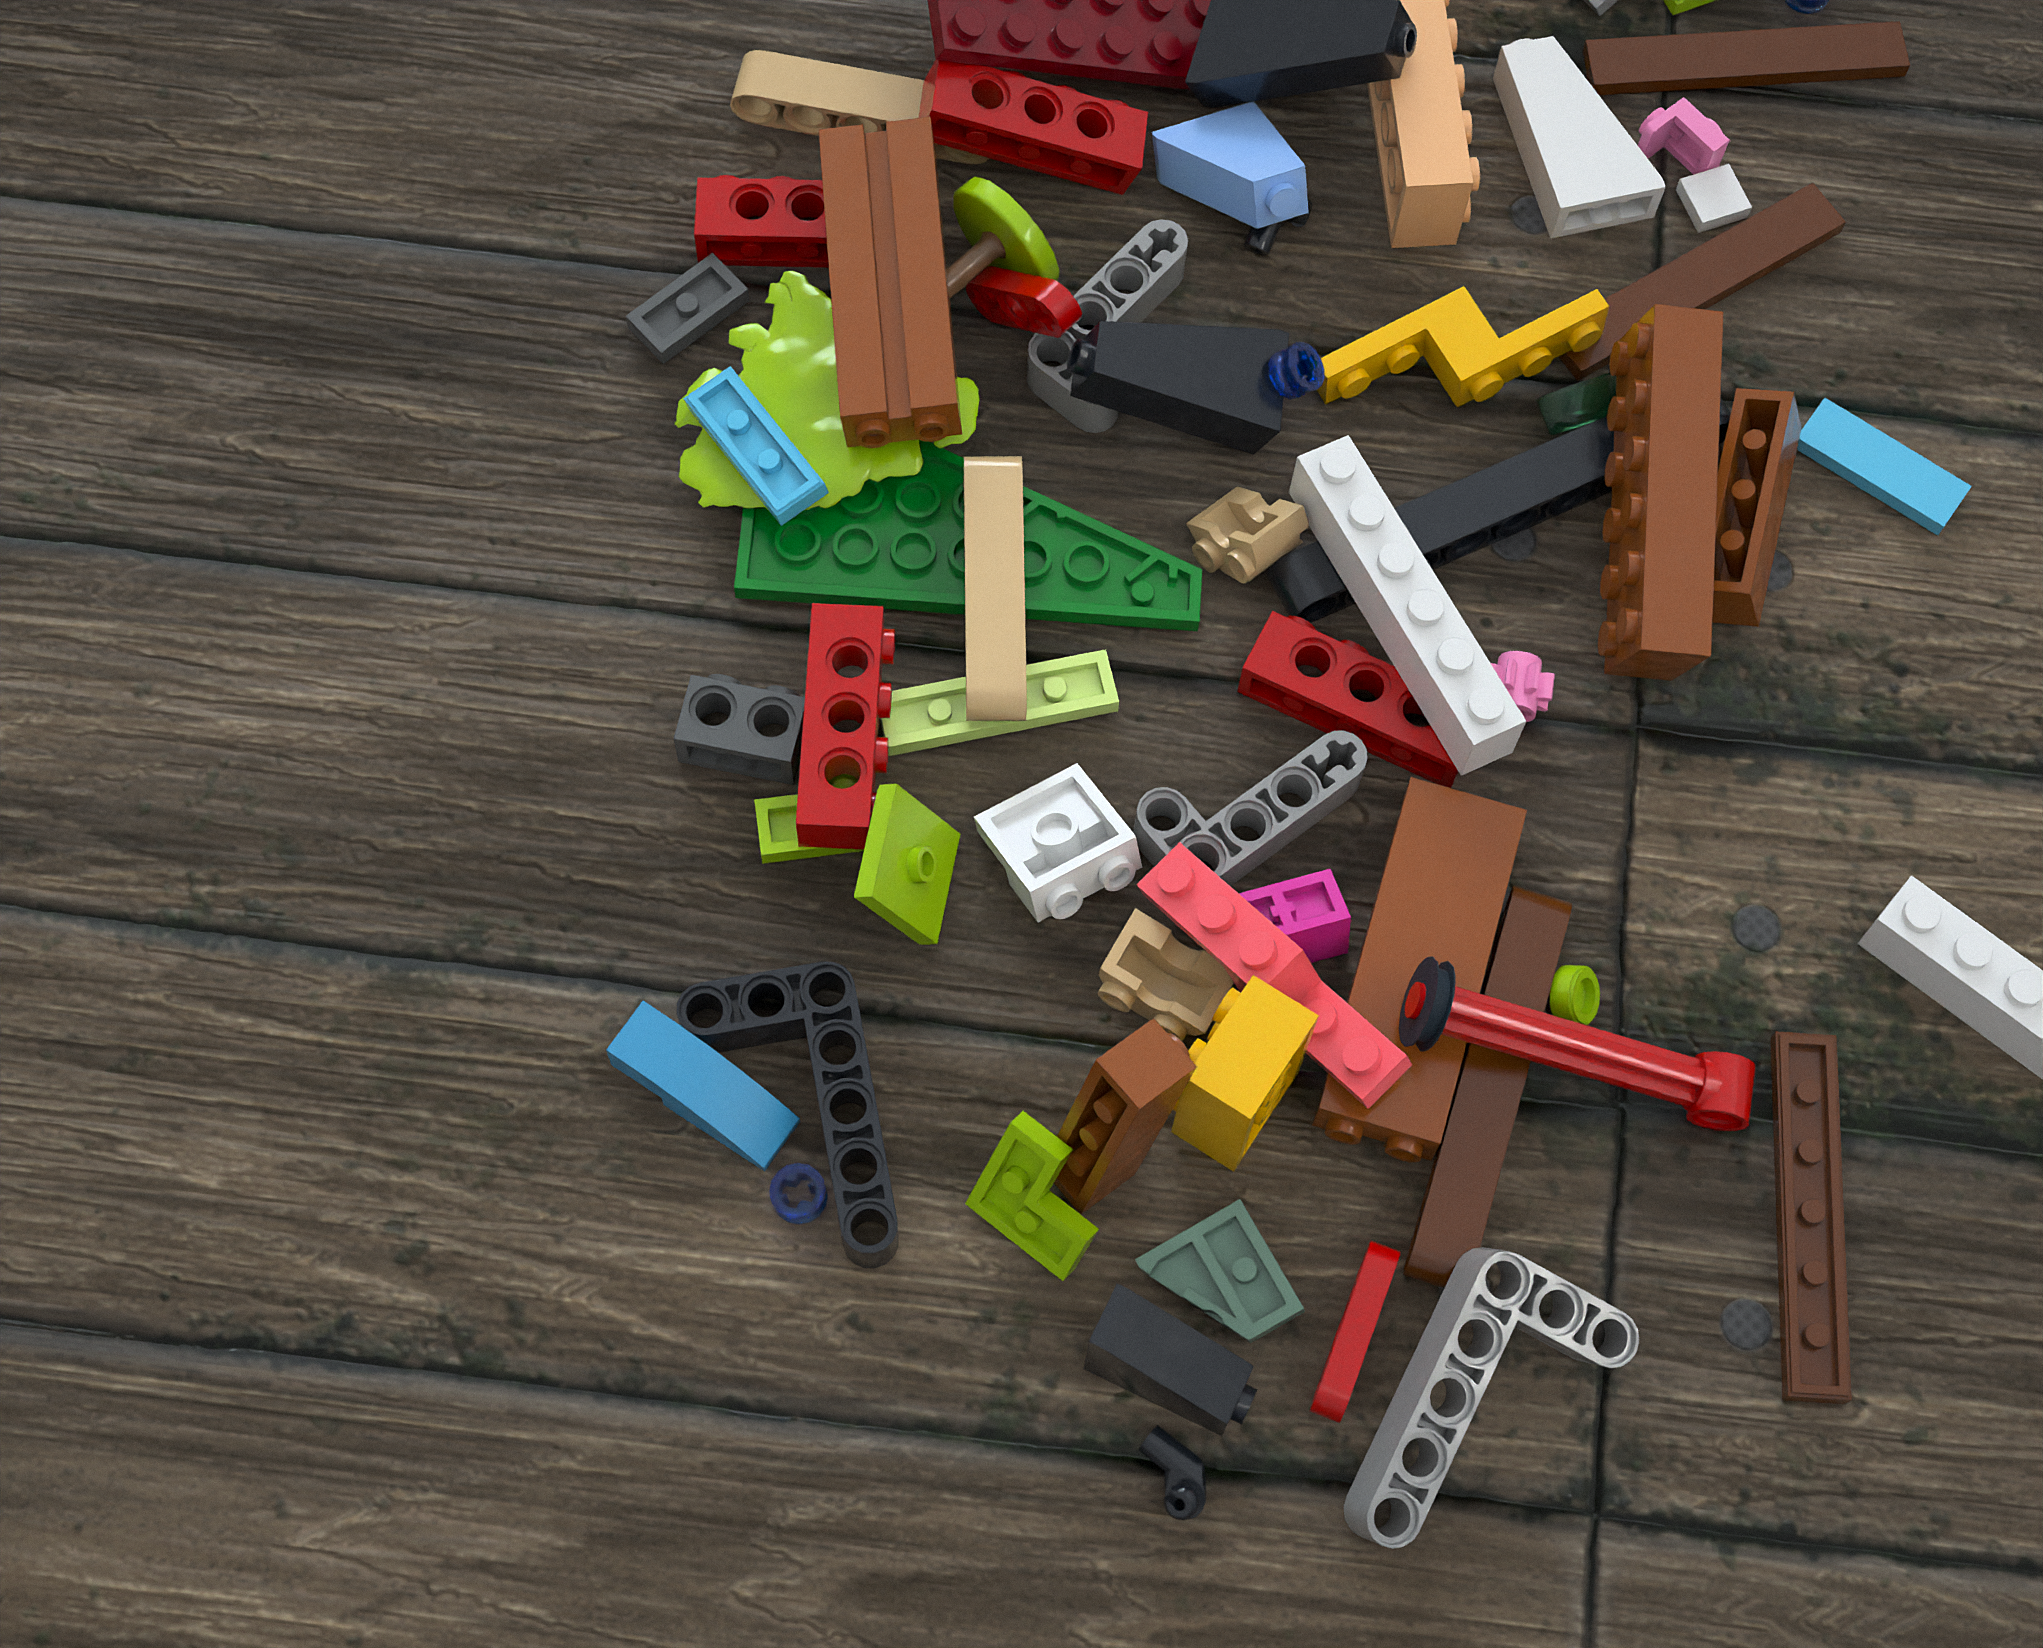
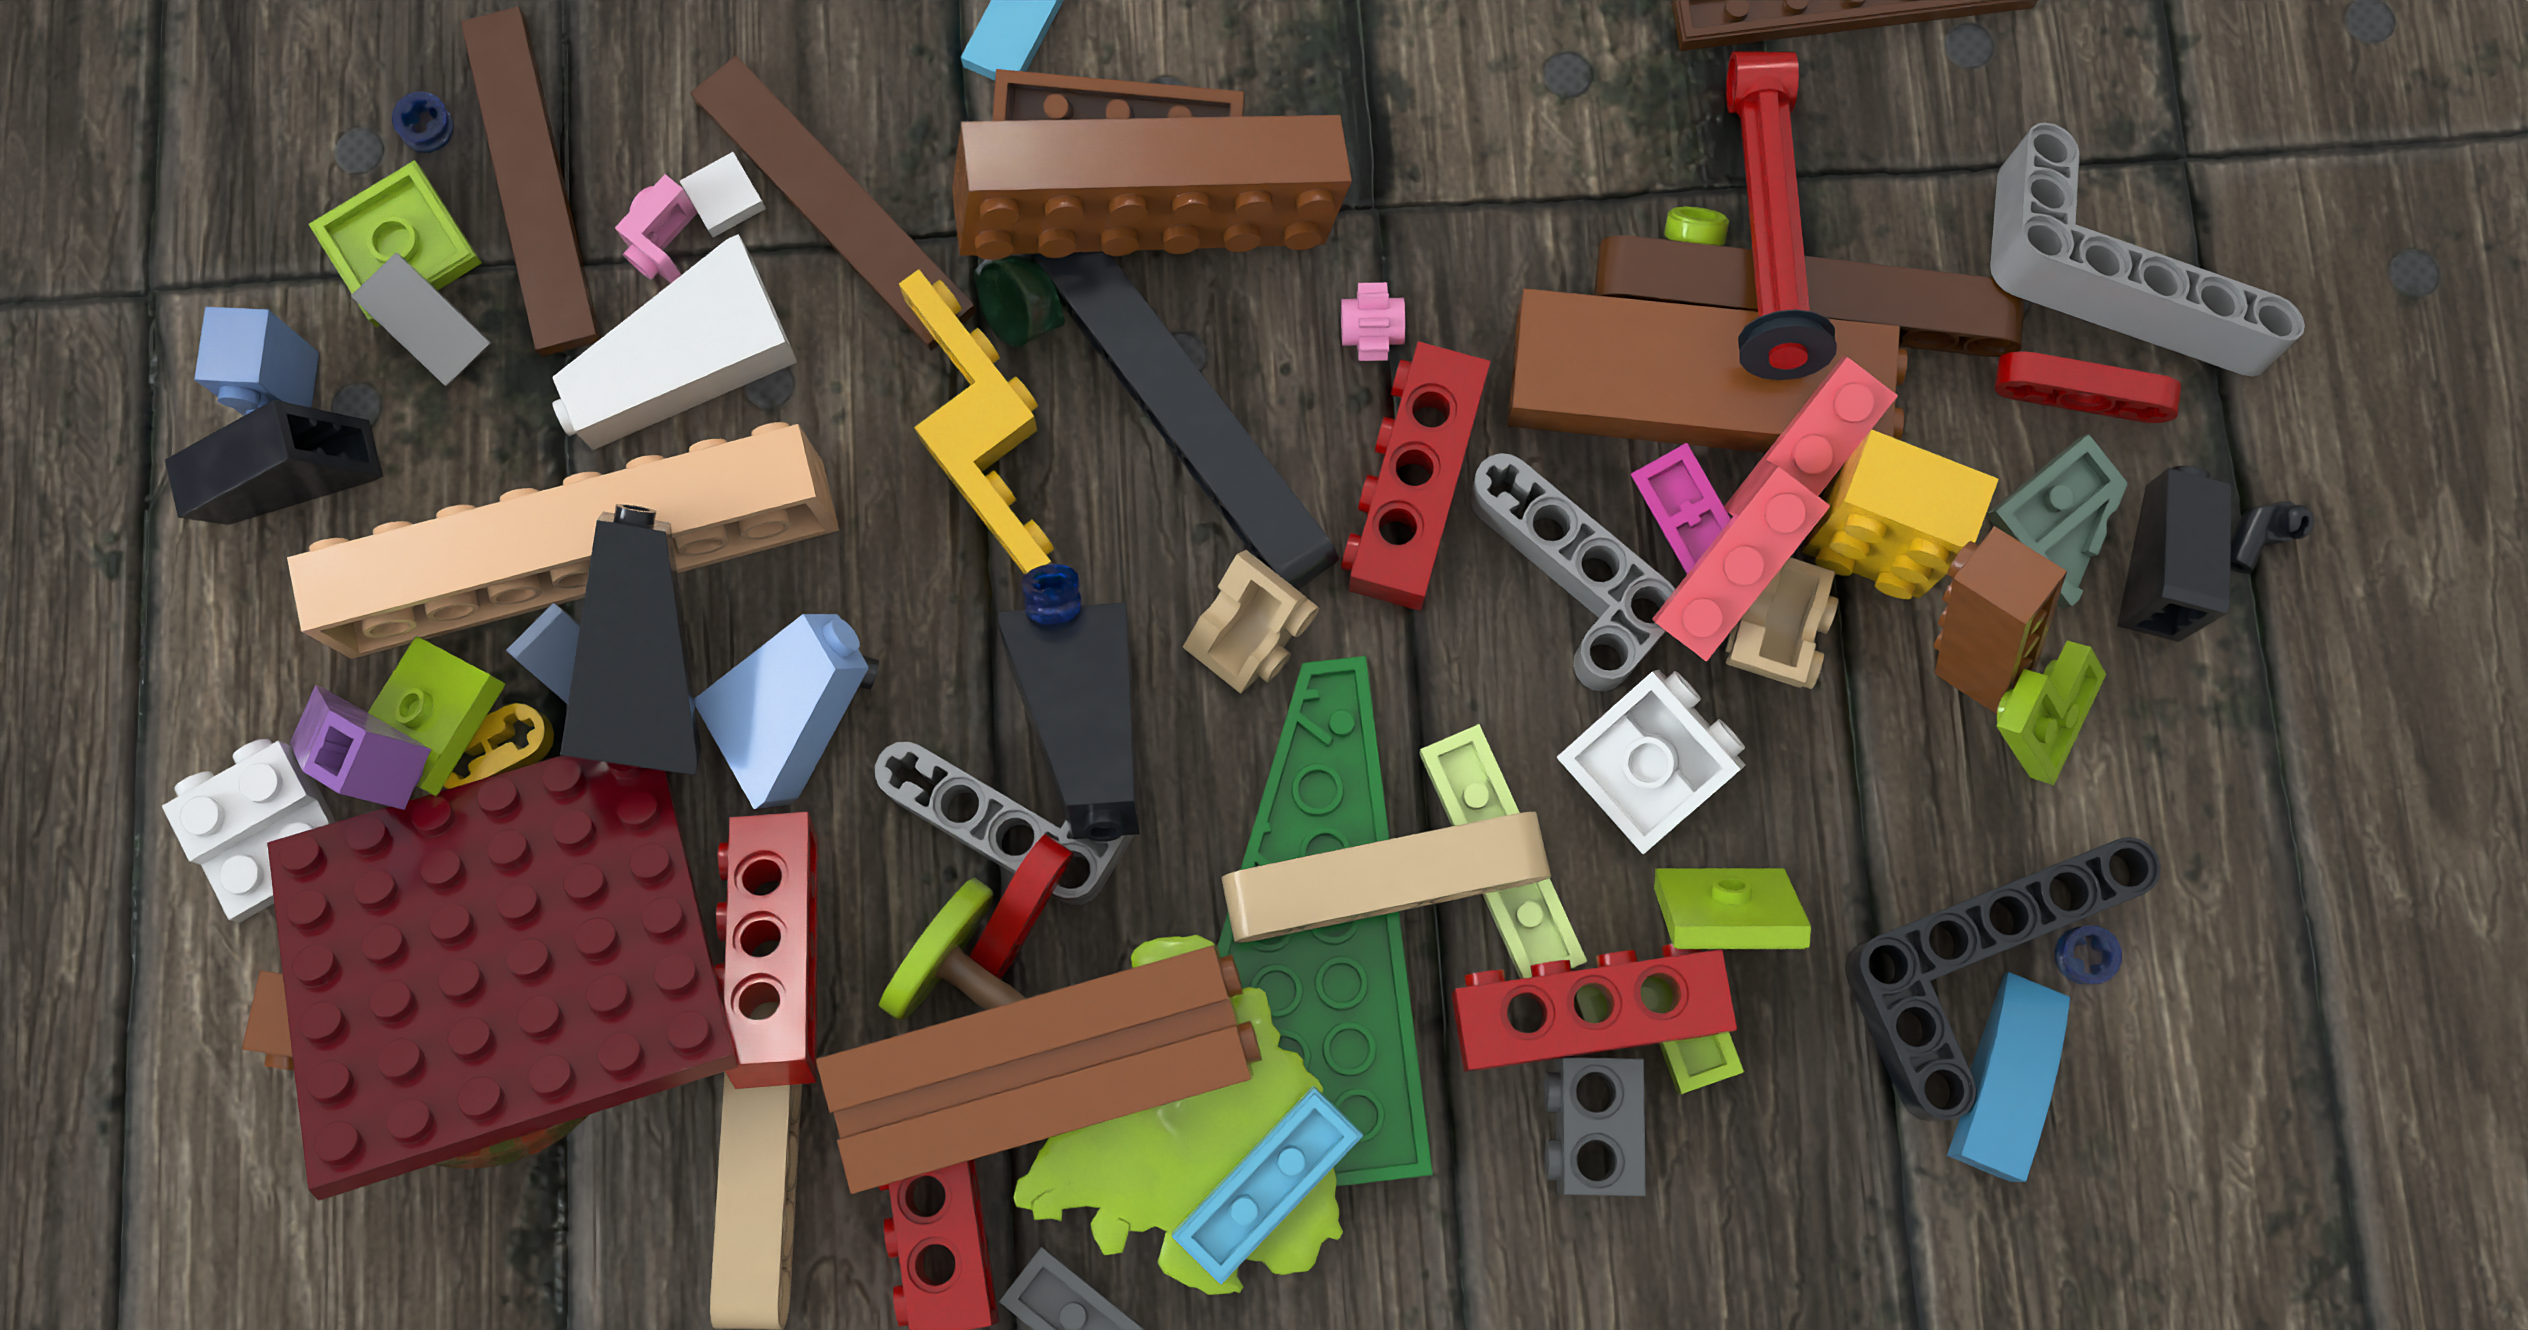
camera: 95 degrees left, 10 degrees up
(1406, 606) = (1332, 431): white brick -> none

